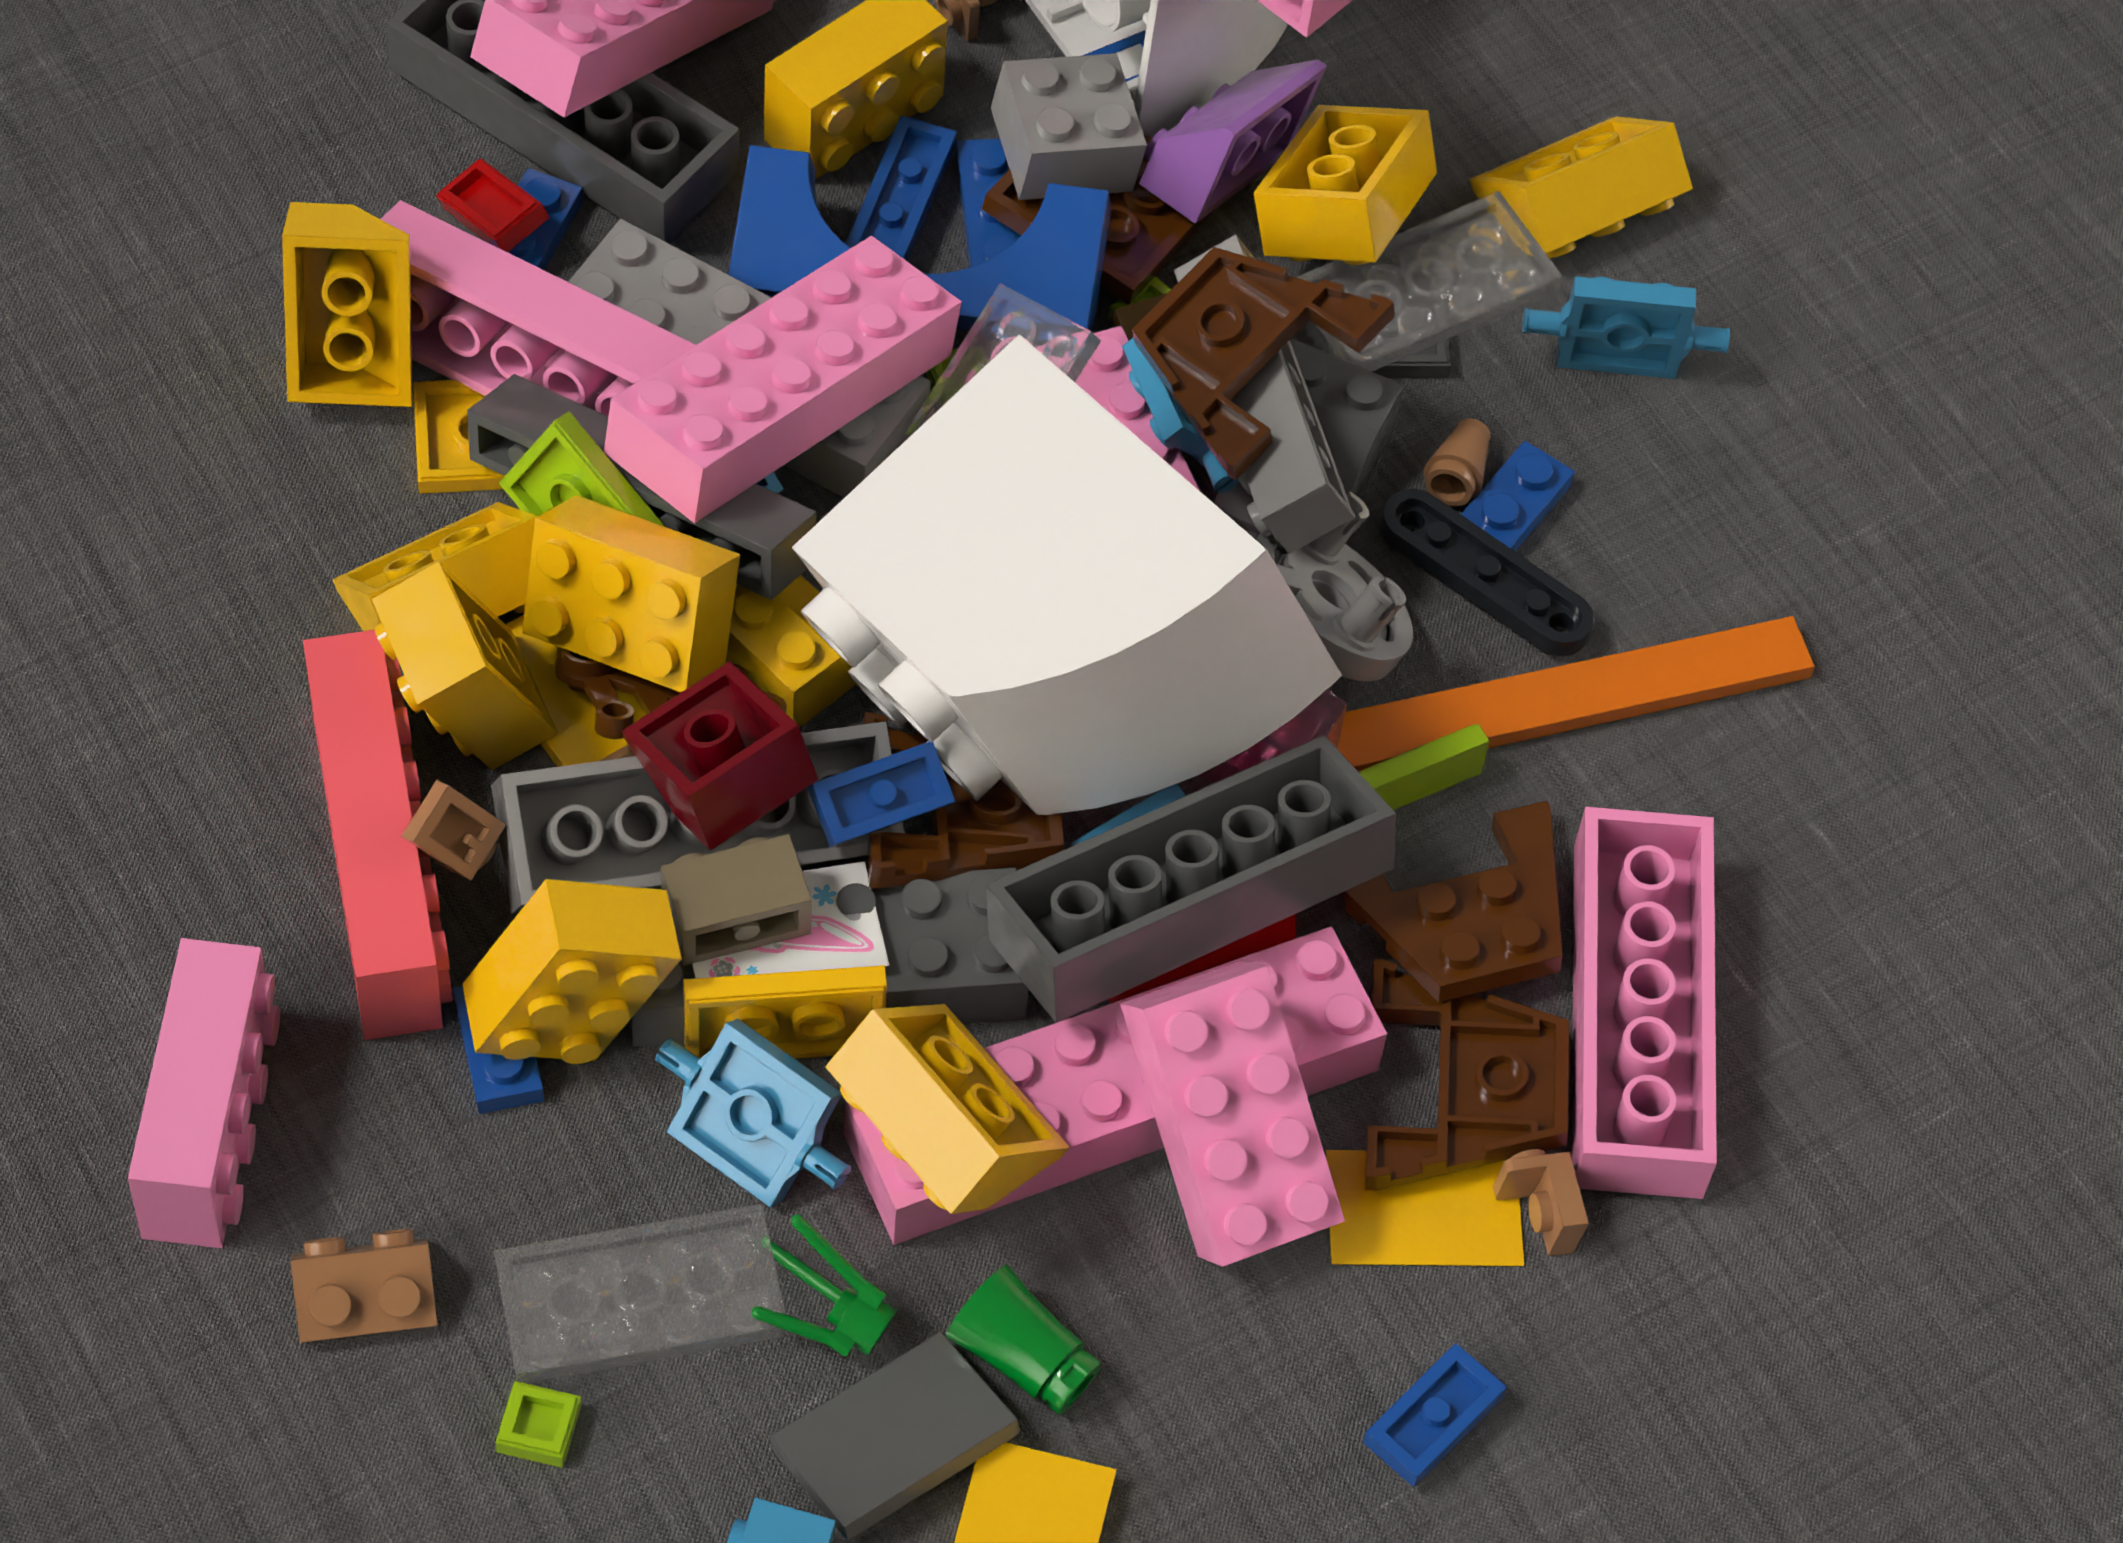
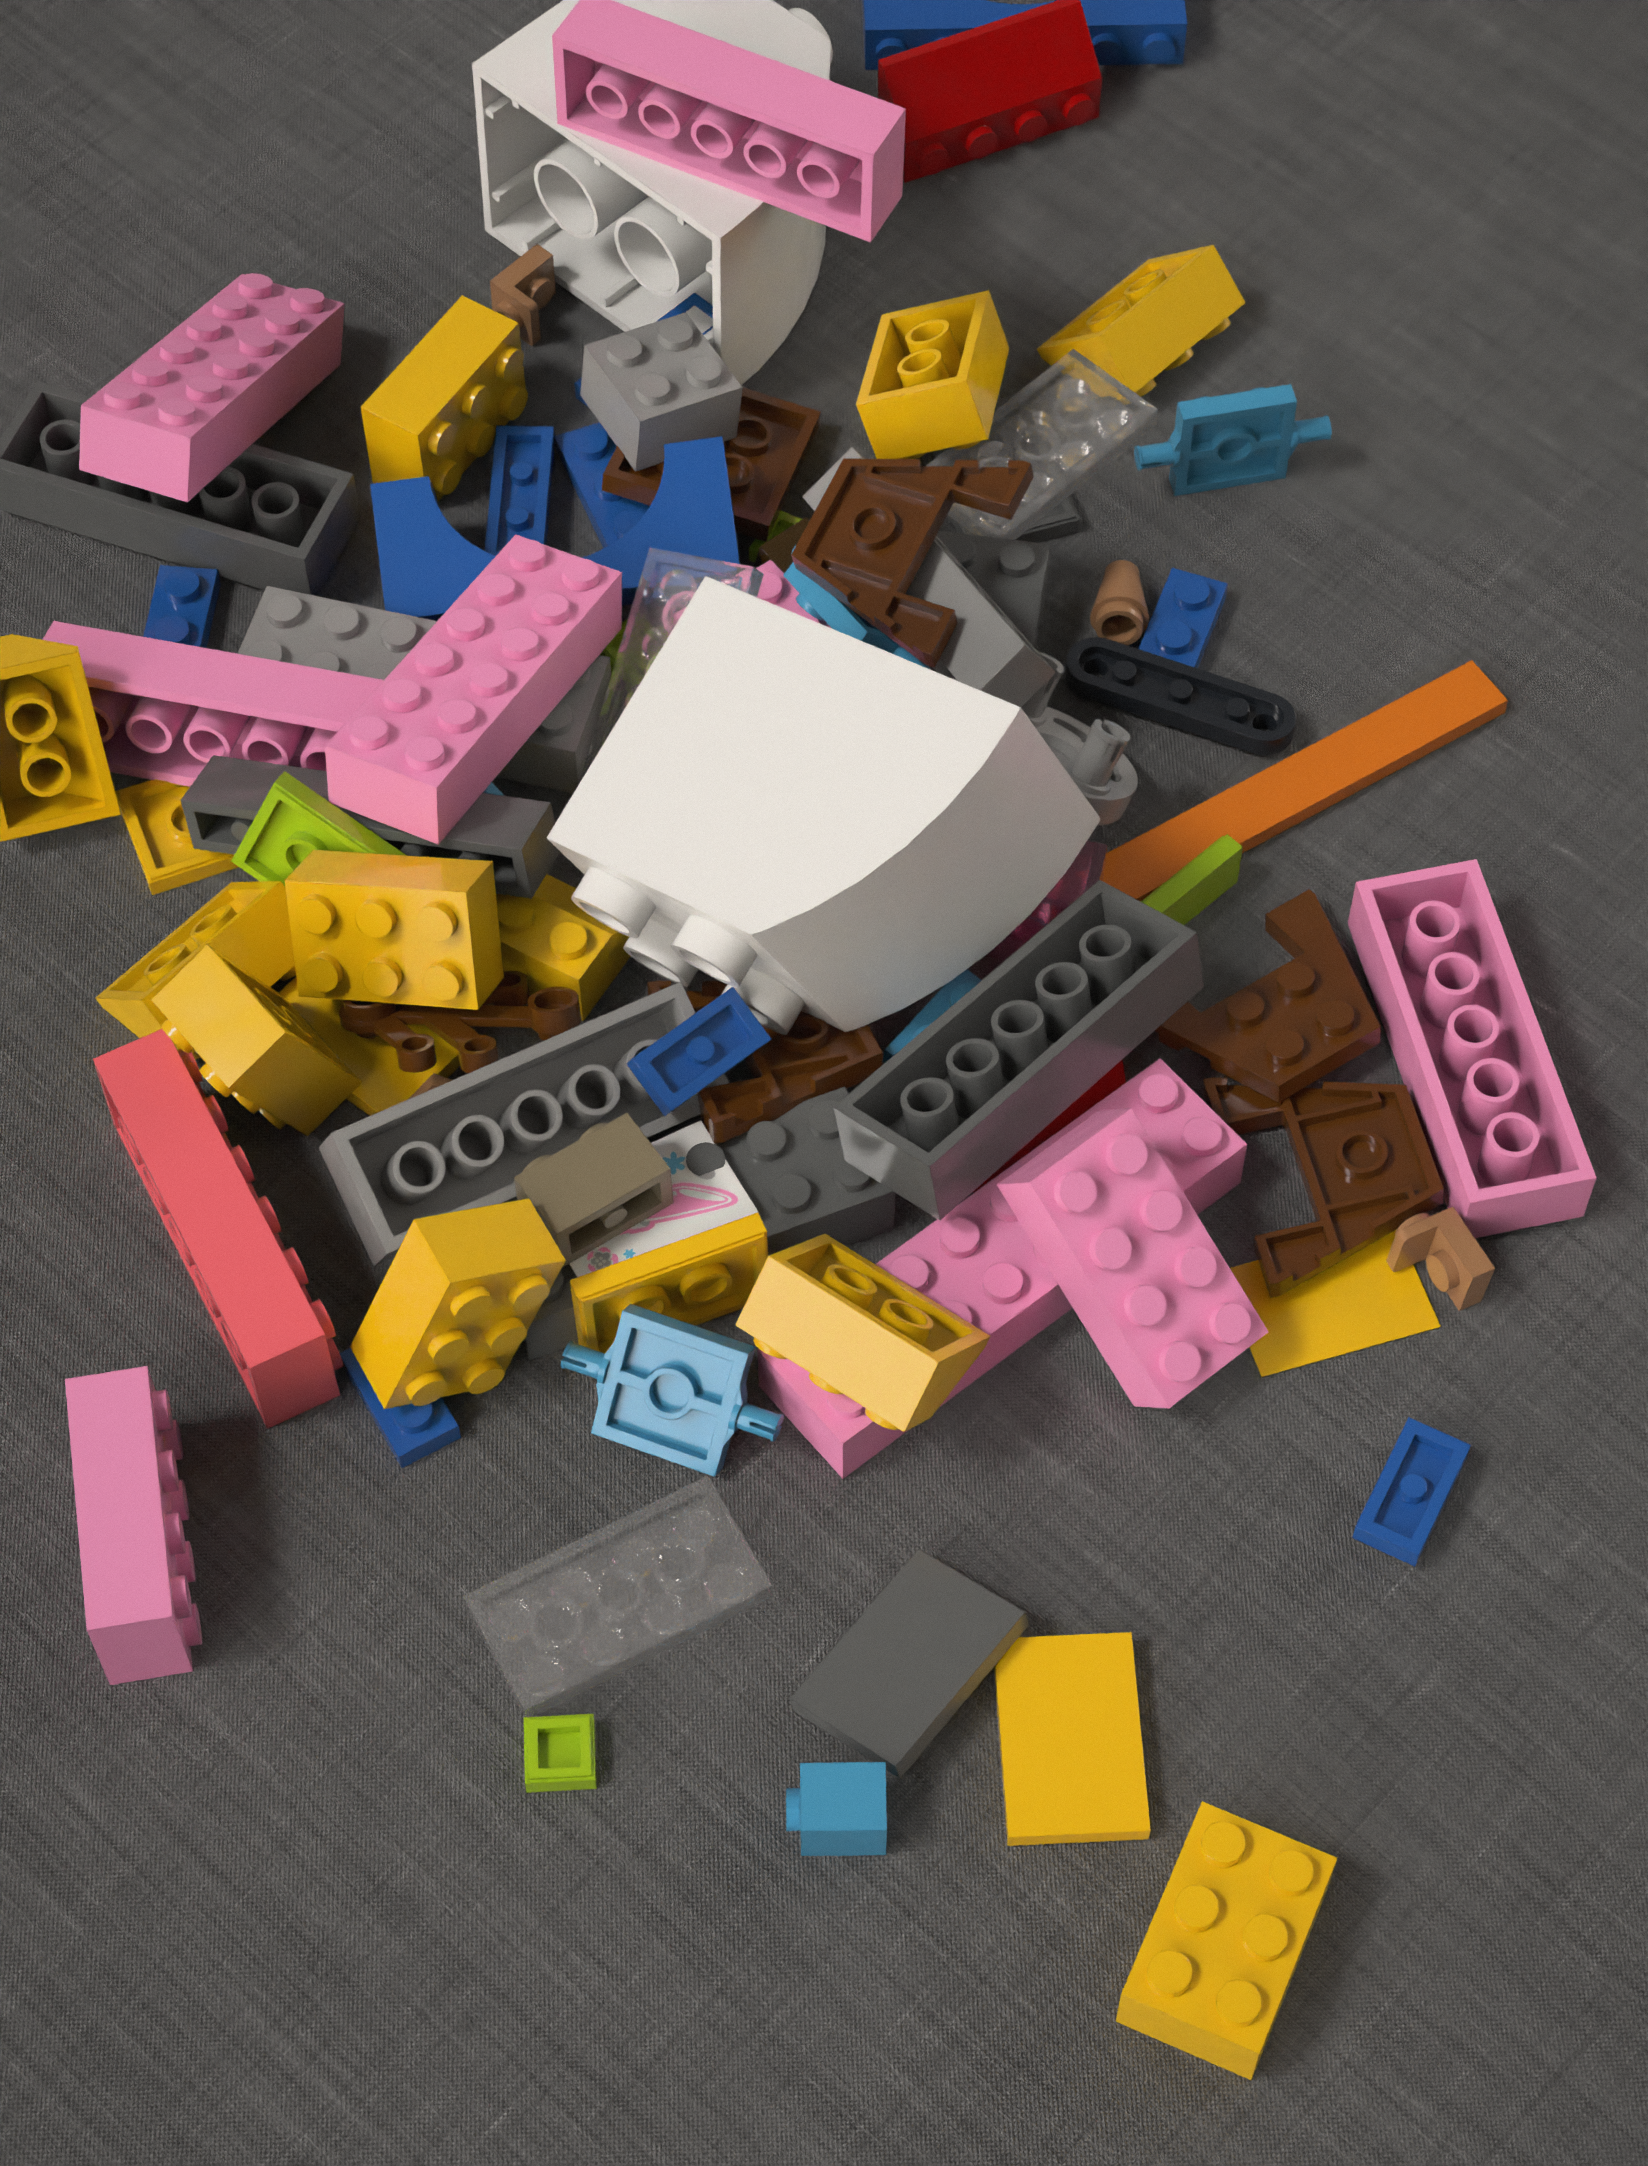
camera: 10 degrees left, 0 degrees up
(363, 1287) = (346, 1668): medium nougat bracket -> none
(454, 831) = (300, 1200): medium nougat bracket -> none
(492, 206) = (138, 606): red tile -> none
(722, 755) = (538, 1054): dark red slope -> none
(857, 1313) = (836, 1557): green plant -> none
(1024, 1341) = (1004, 1535): green plant -> none
(1229, 138) = (811, 364): medium lavender slope -> none

